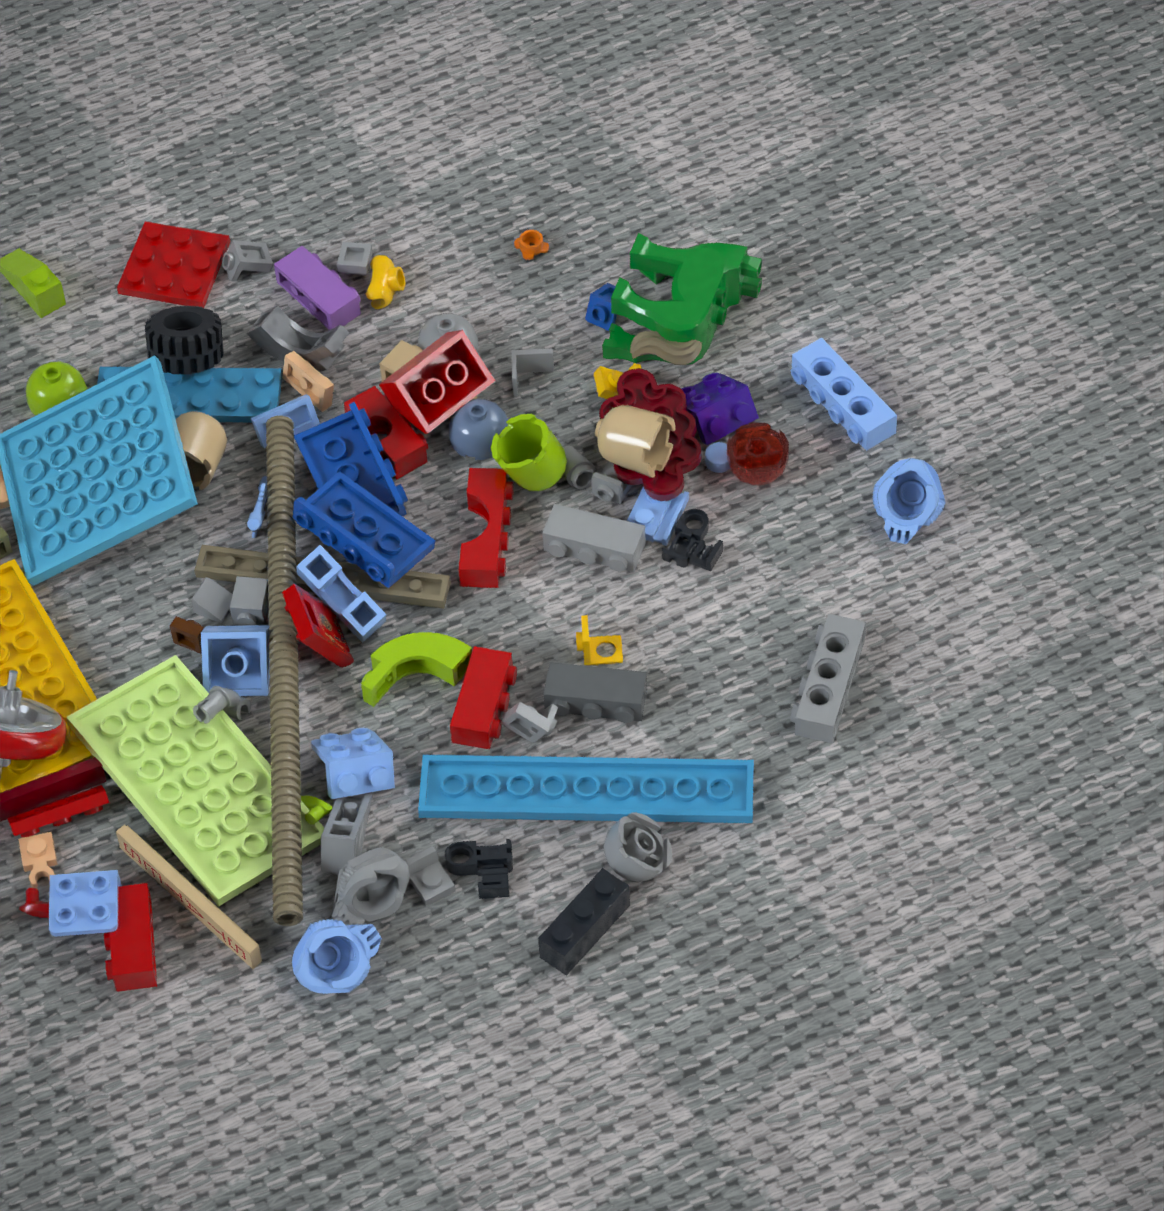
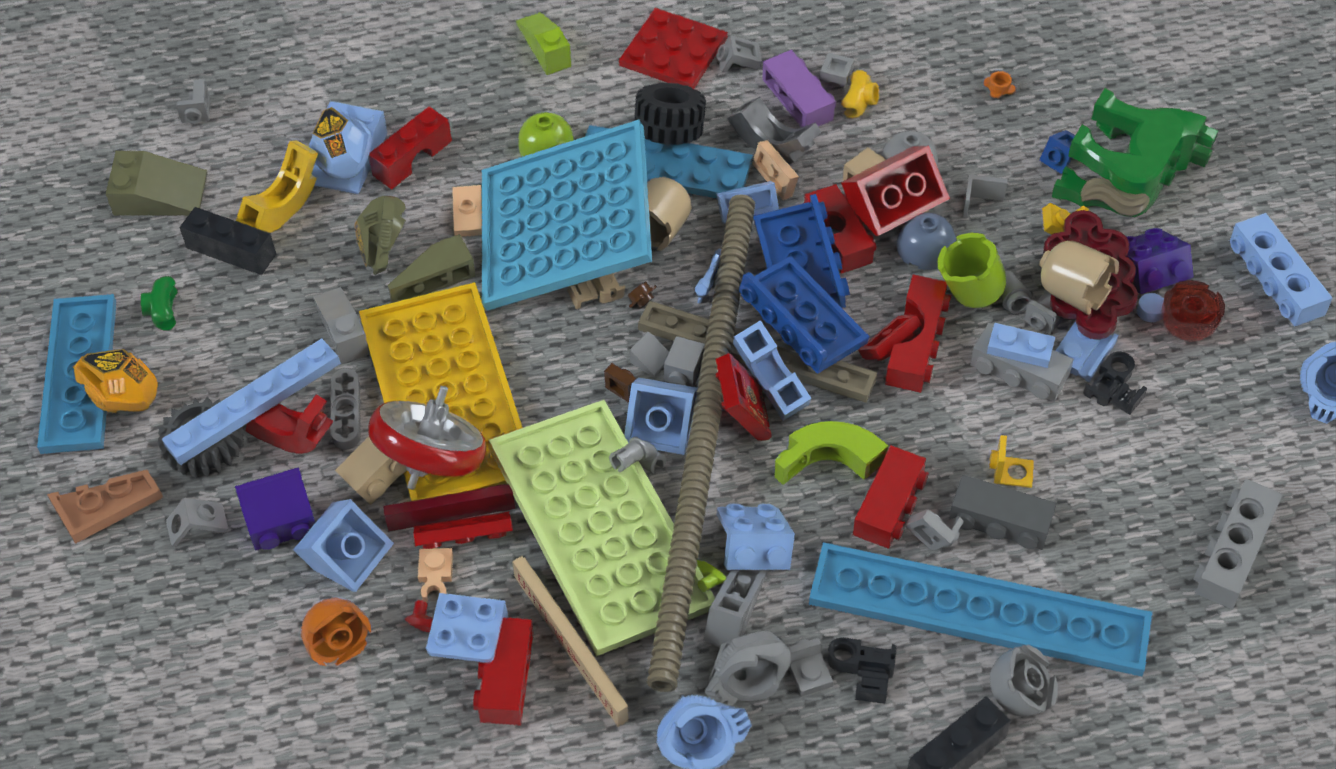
camera: 10 degrees right, 0 degrees up
(145, 540) = (596, 287): none -> tan piece
(192, 540) = (641, 295): none -> reddish brown plate
(463, 530) = (896, 332): none -> red plate
(589, 521) = (1020, 345): none -> light blue plate

